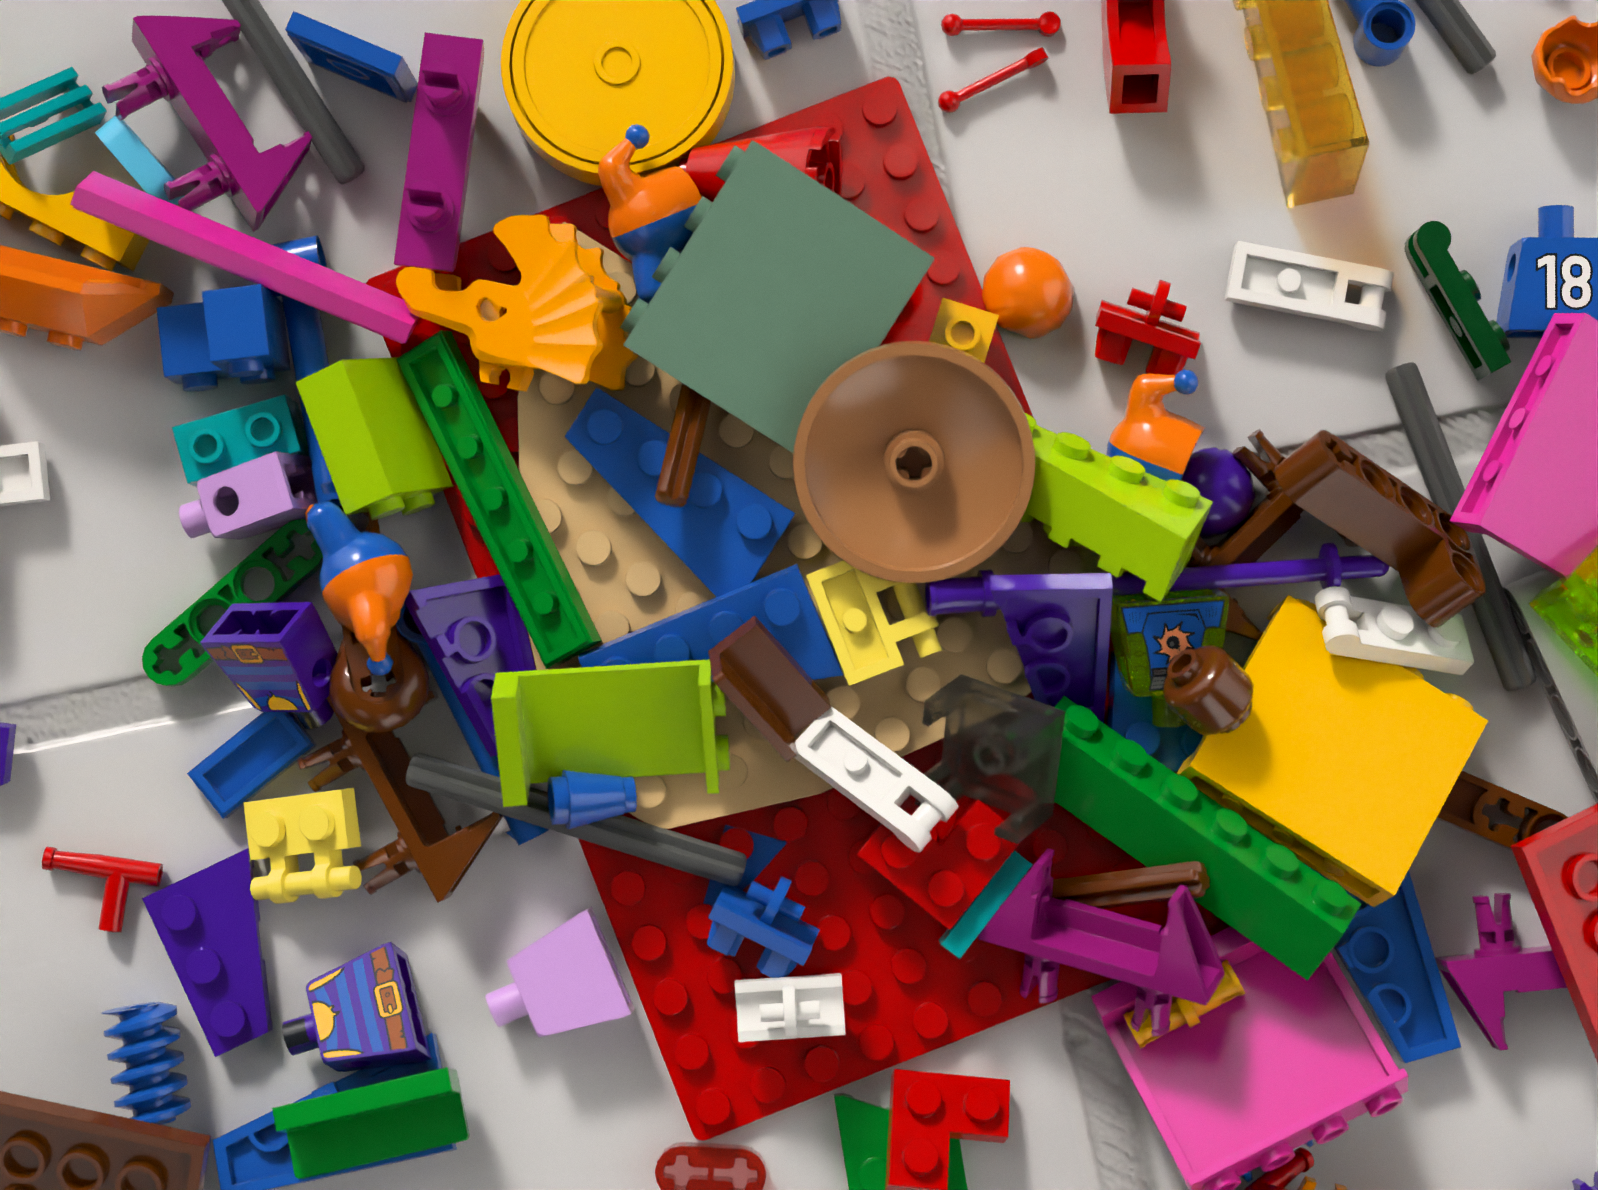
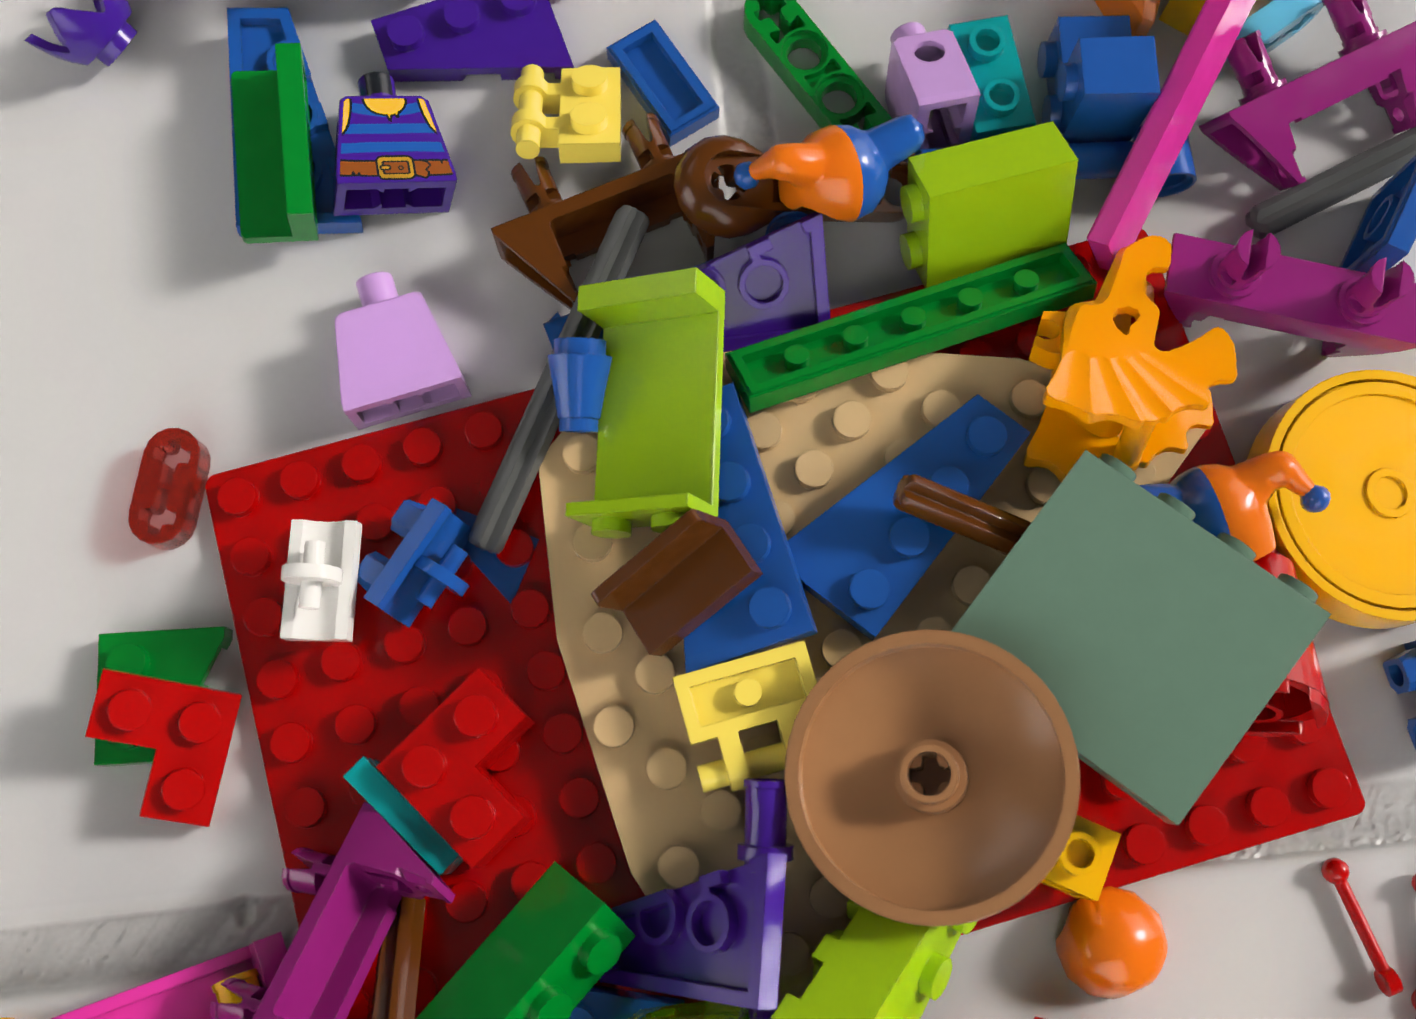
camera: 90 degrees right, 10 degrees down
(276, 657) = (763, 93): dark purple torso -> none
(873, 777) = (561, 695): white plate -> none
(998, 751) = (578, 845): clear smoke panel -> none

